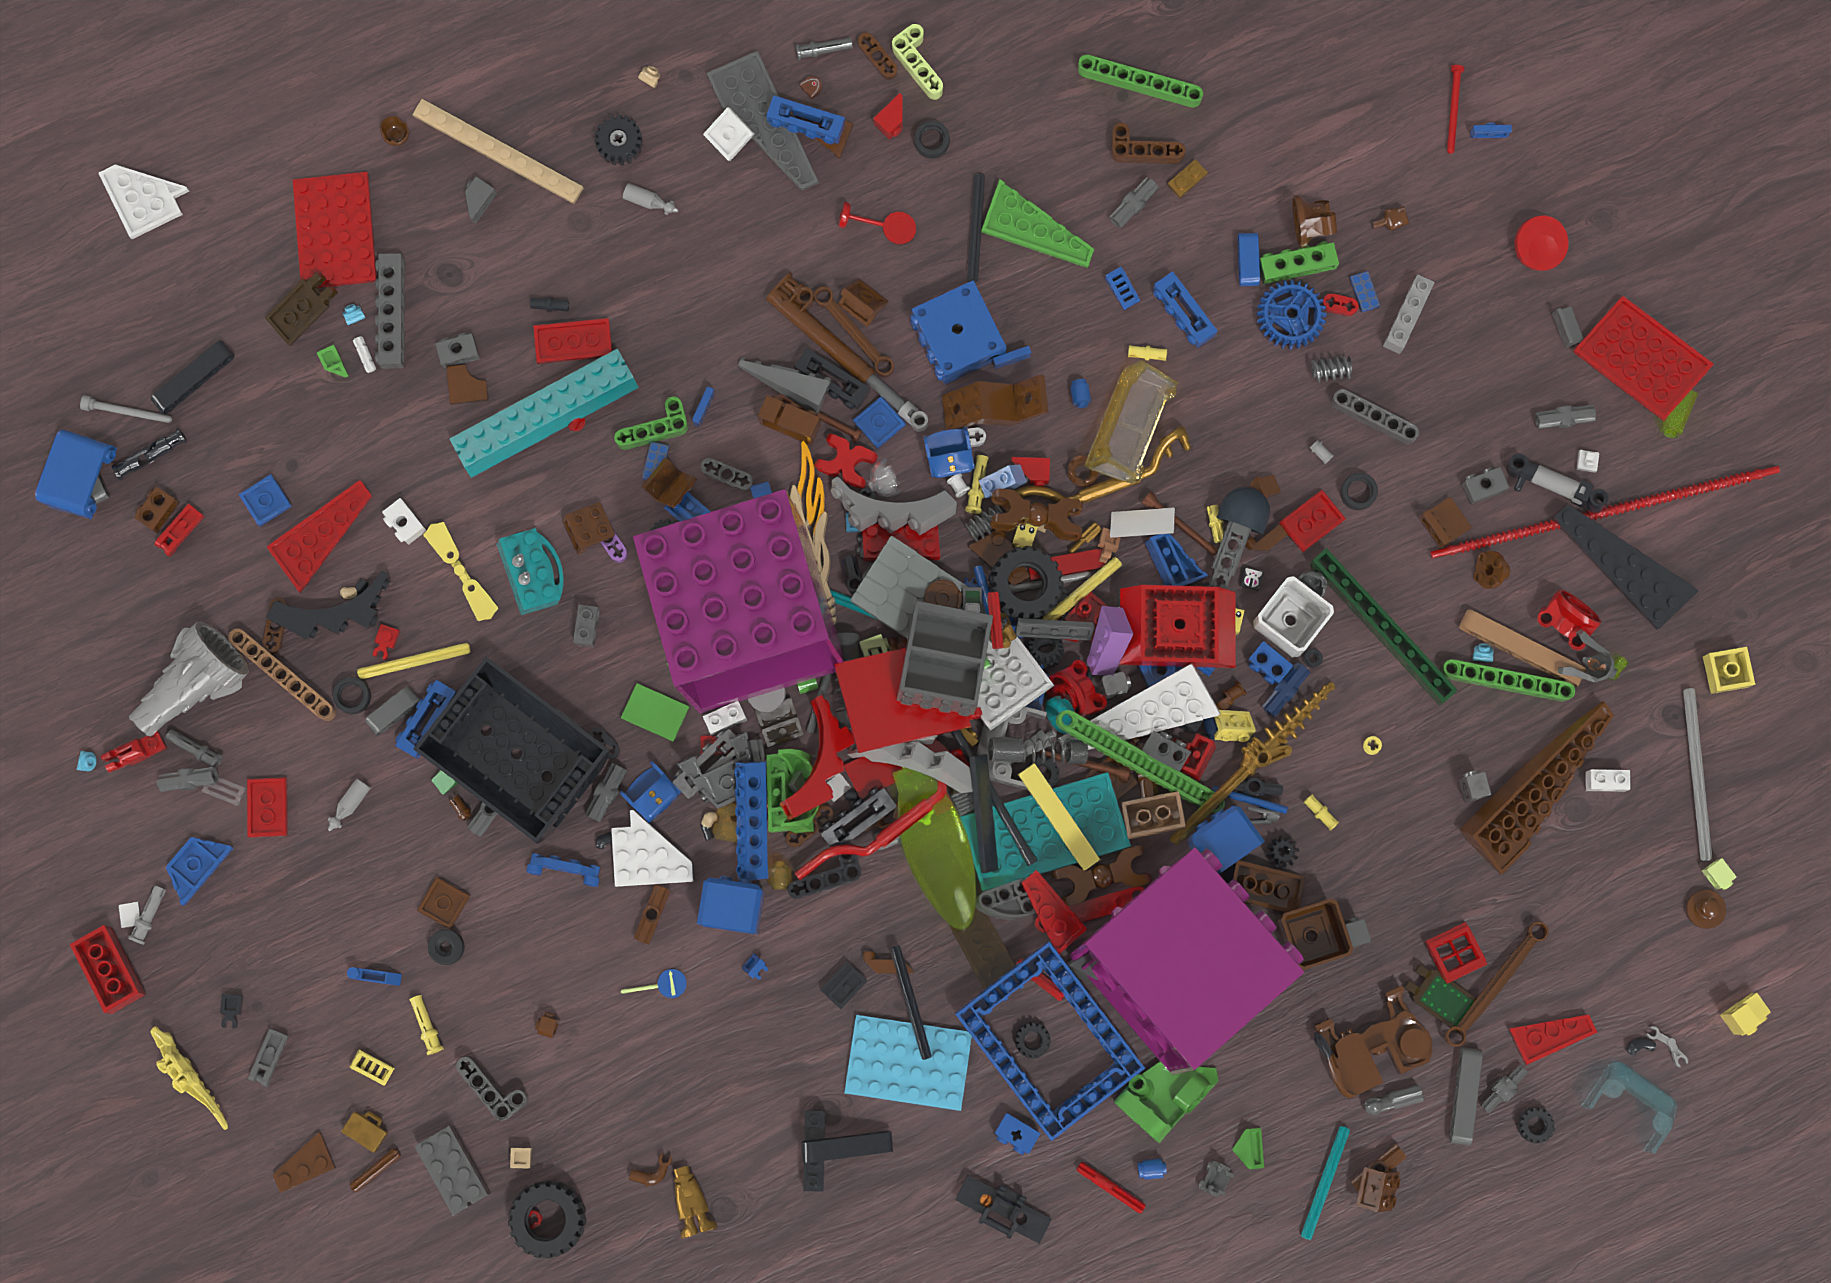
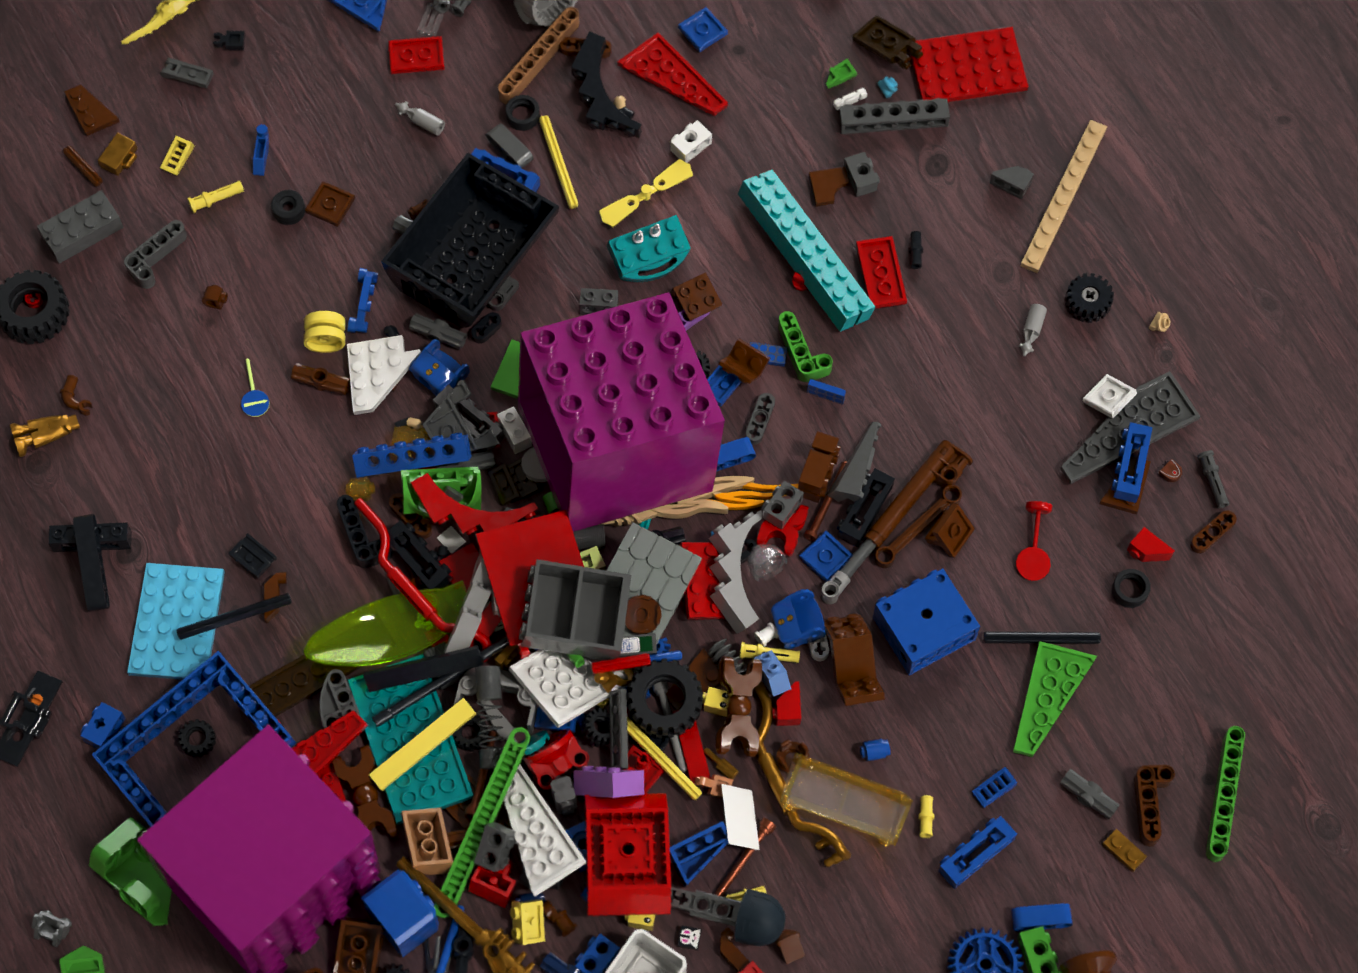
camera: 85 degrees right, 15 degrees down
(386, 639) = (578, 137): red plate -> none
(394, 131) = (1070, 104): reddish brown hair -> none
(520, 1158) = (89, 282): tan tile -> none
(602, 907) = (324, 331): none -> light yellow wheel
(731, 905) = (326, 441): blue plate -> none
(753, 966) = (270, 471): blue tile -> none
(834, 453) = (785, 506): none -> dark grey brick
(920, 65) = (1209, 571): yellowish green beam -> none
(1011, 357) = (906, 678): blue tile -> none
(1110, 1187) = (46, 823): red axle -> none
(1151, 1169) = (63, 861): blue brick -> none

